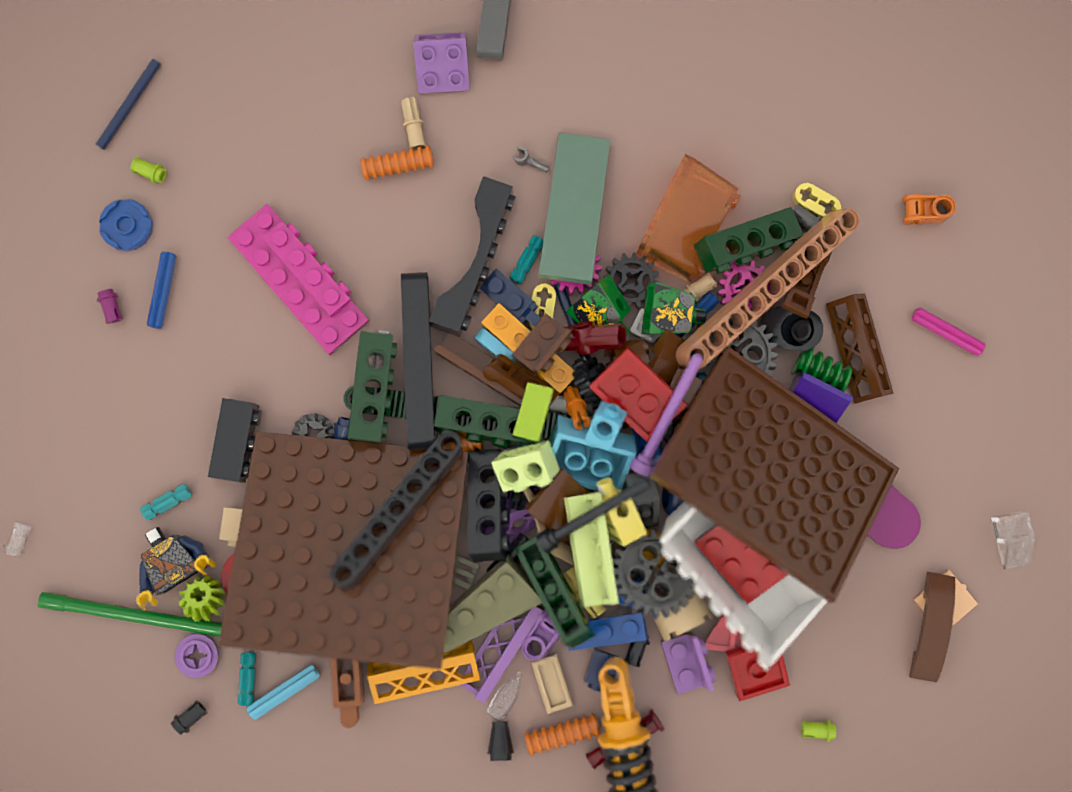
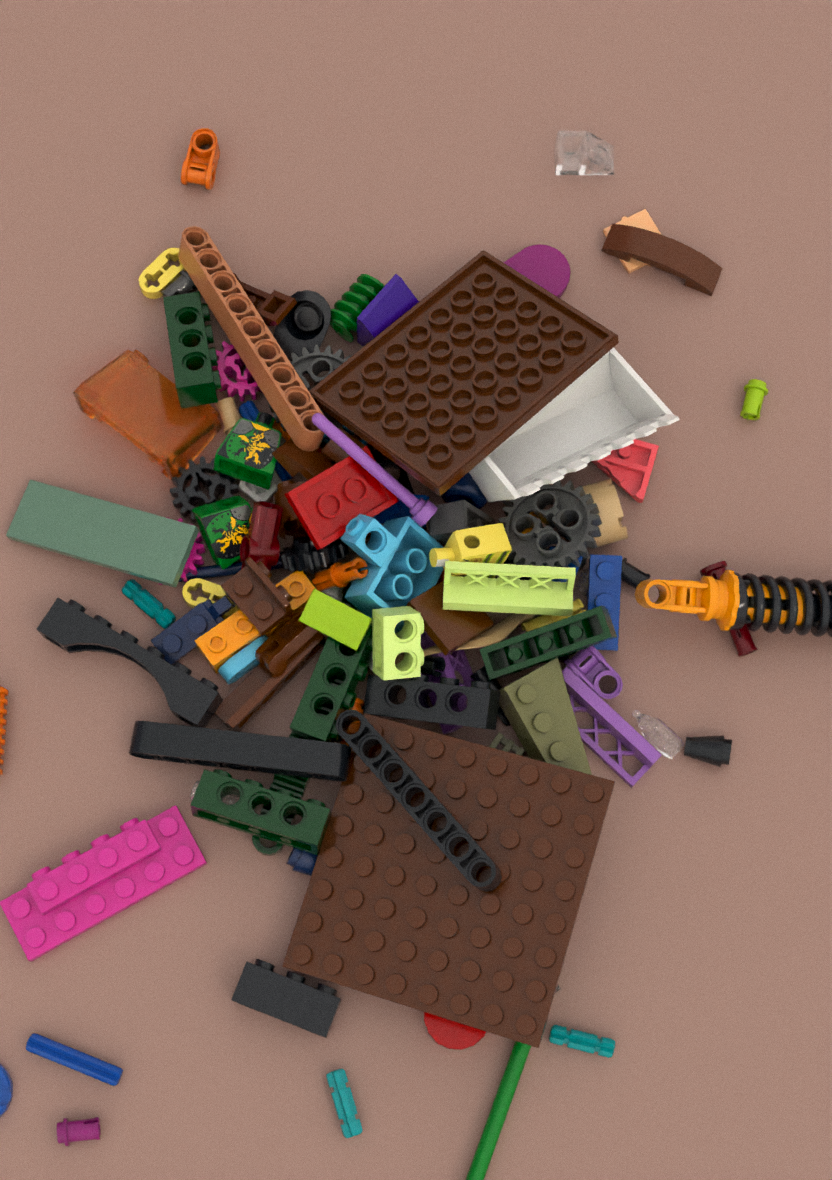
camera: 80 degrees left, 10 degrees down
(169, 564) = (423, 1109): torso -> none
(187, 647) = (554, 1087): medium lavender gear -> none
(188, 717) = (616, 1123): black pin -> none
(201, 608) = (472, 1061): lime gear -> none
(230, 525) = (393, 1017): tan brick -> none
(283, 691) = (606, 998): medium azure axle -> none
(315, 421) = (286, 893): dark grey gear -> none
(347, 689) = (616, 913): dark orange brick -> none
(381, 673) = (604, 865): light orange fence -> none
(529, 160) = (29, 578): flat silver hand -> none
(551, 538) = (486, 632): black piece -> none
(552, 683) = (652, 678): tan tile -> none
(562, 734) = (712, 676): orange piece -> none
(594, 667) = (645, 621): dark blue brick -> none
(687, 663) = (656, 517): medium lavender bracket -> none
(739, 564) = (554, 431): red plate -> none
(749, 675) = (677, 450): red tile -> none
(868, 345) = (333, 255): reddish brown fence -> none
(948, 331) = (342, 171): dark pink axle -> none

